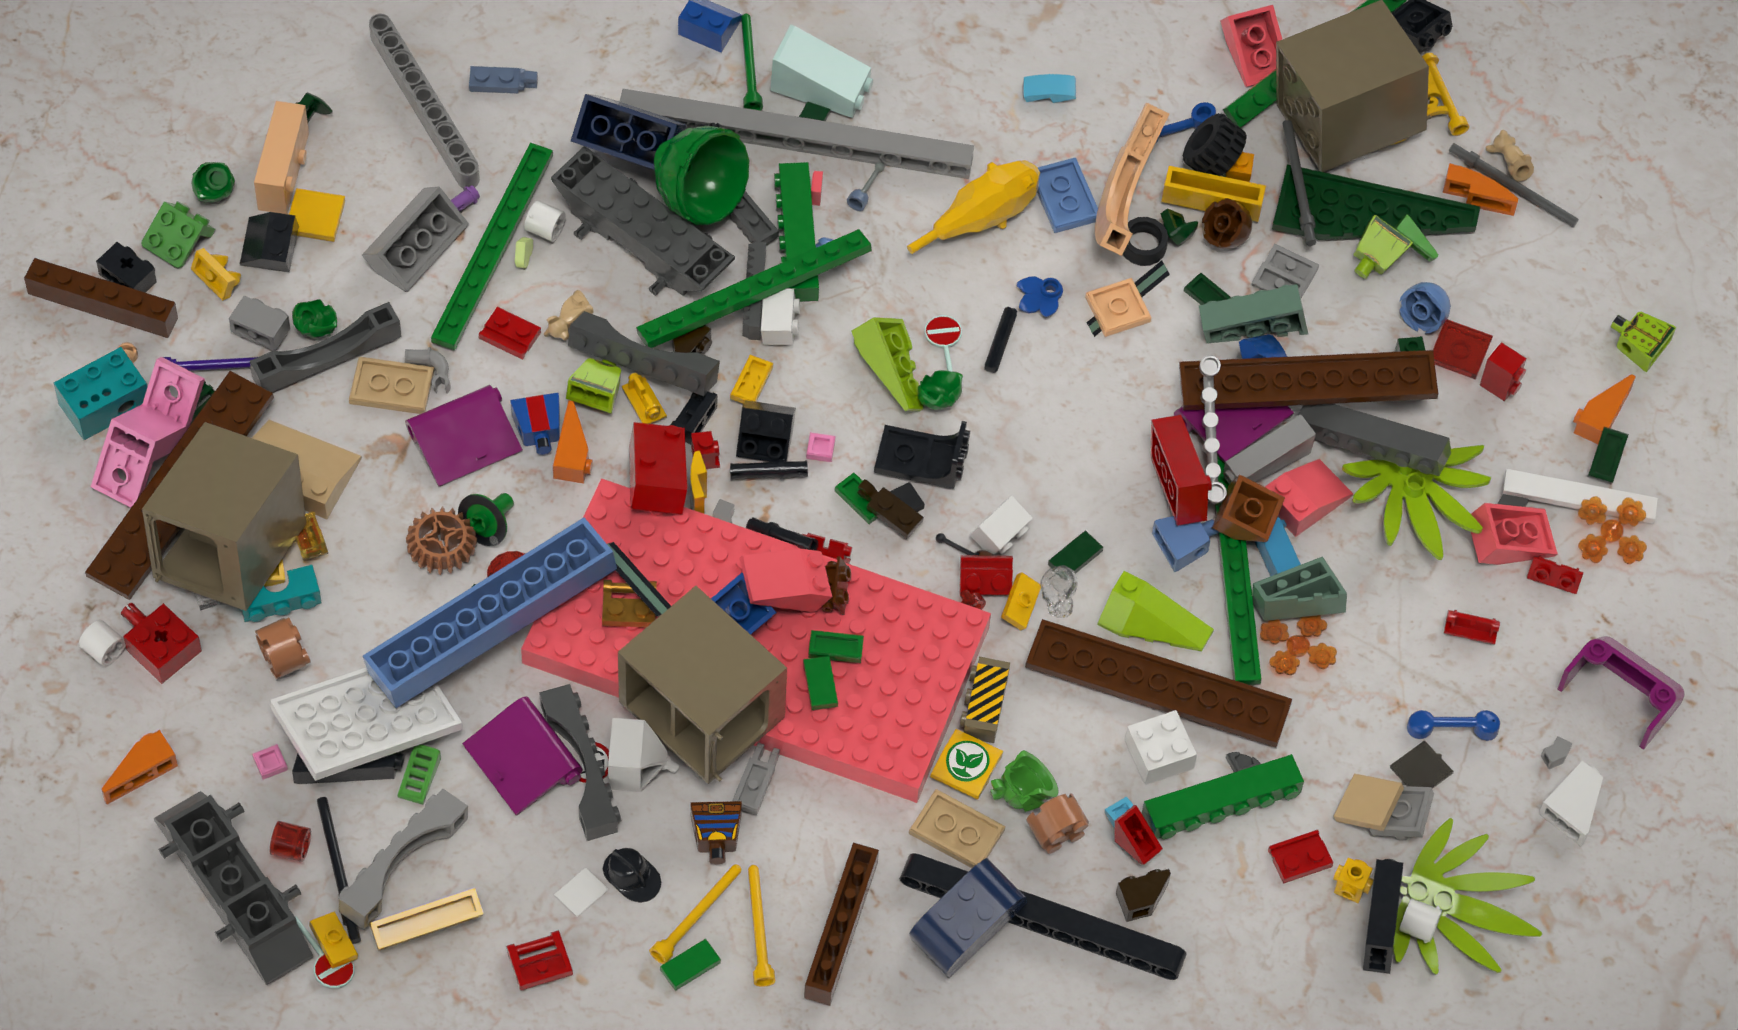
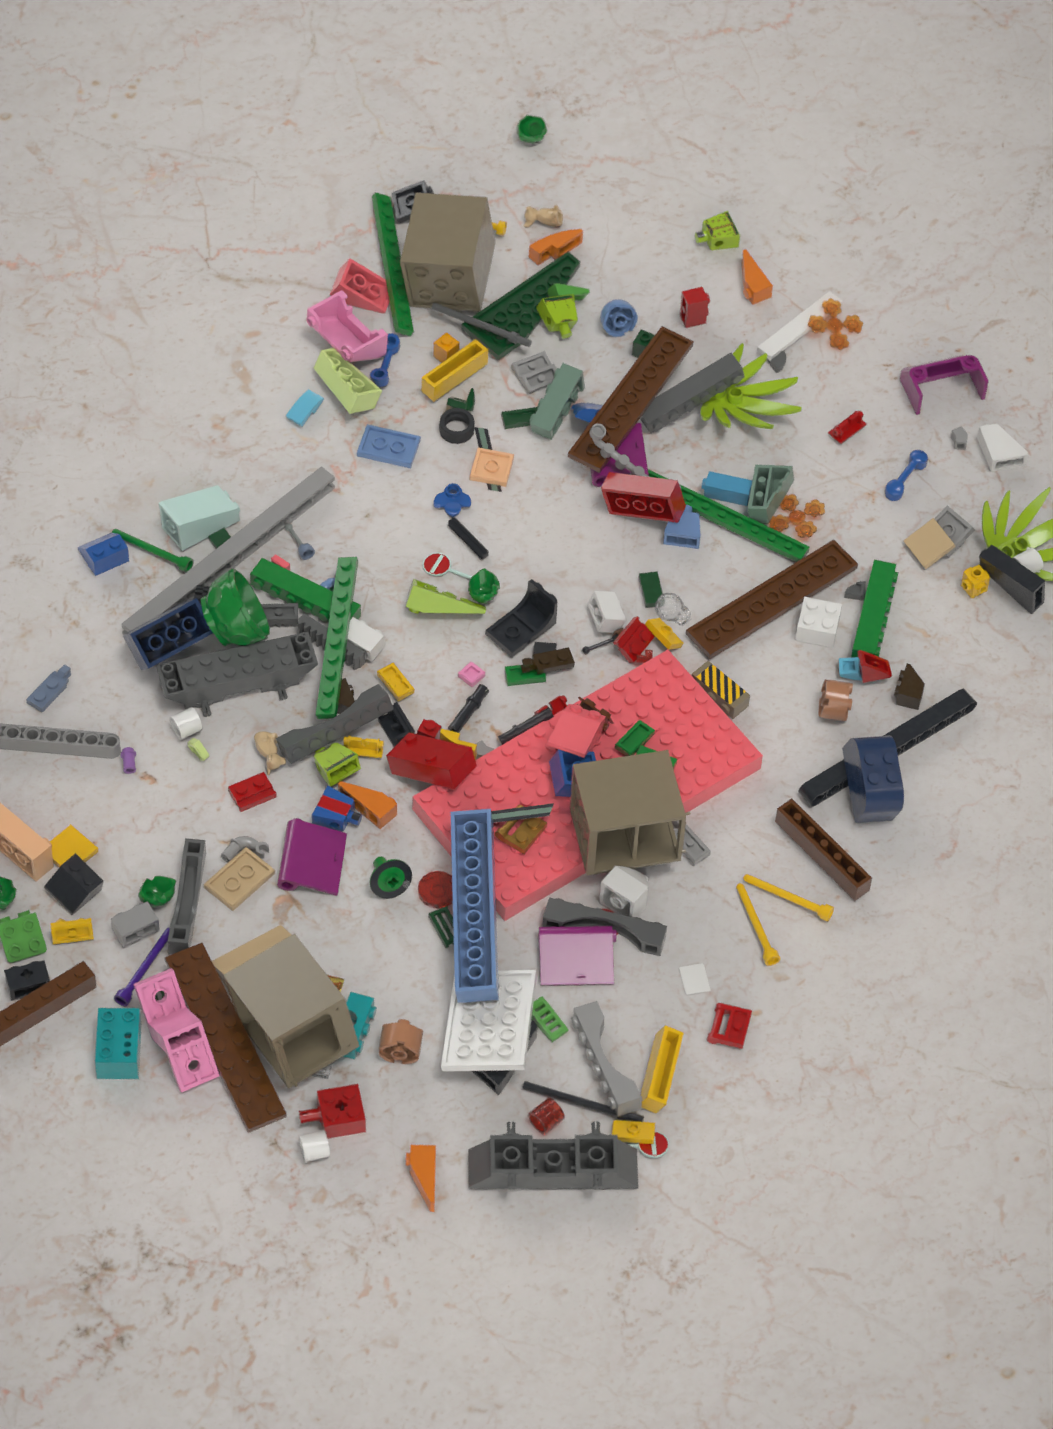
camera: 55 degrees left, 5 degrees down
(127, 347) = (92, 1020): light nougat hinge -> none
(270, 761) = (473, 1099): bright pink tile -> none
(415, 238) = (137, 802): light grey slope -> none
(430, 551) = (391, 920): nougat gear -> none
(492, 246) = (179, 764): green plate -> none
(632, 875) = (702, 944): black piece -> none
(690, 964) = (789, 947): green tile -> none
(716, 827) = (706, 879): torso -> none
(765, 431) = (440, 694): black slope -> none
(956, 829) = (796, 758): tan tile -> none
(966, 764) = (757, 724): slope -> none
(986, 202) = (367, 484): yellow piece -> none
(1025, 783) = (796, 702): bright green helmet -> none
(1108, 106) = (347, 382): none -> yellowish green wedge
(1114, 206) = (410, 413): light nougat arch -> none
(1147, 613) = (720, 576): lime wedge -> none
(1174, 59) = (344, 331): none -> bright pink windscreen
(1214, 145) = (415, 347): black tyre -> none
(1227, 224) = (477, 380): reddish brown cylinder -> none
(1248, 511) = (697, 481): dark orange slope -> none
(1272, 452) = (663, 446): light grey slope -> none
(1300, 856) = (938, 599): red plate -> none
(1309, 495) = (699, 453): coral slope -> none
(1421, 767) = (921, 507): clear smoke piece -> none
(1461, 348) = (655, 316): clear red tile -> none
(1473, 160) = (531, 236): dark grey bar -> none
(1512, 534) = (807, 368): coral slope -> none
(1554, 575) = (843, 369): red hinge -> none
(1608, 454) = (785, 294): dark green tile -> none
(1624, 72) = (531, 129): none -> green hair

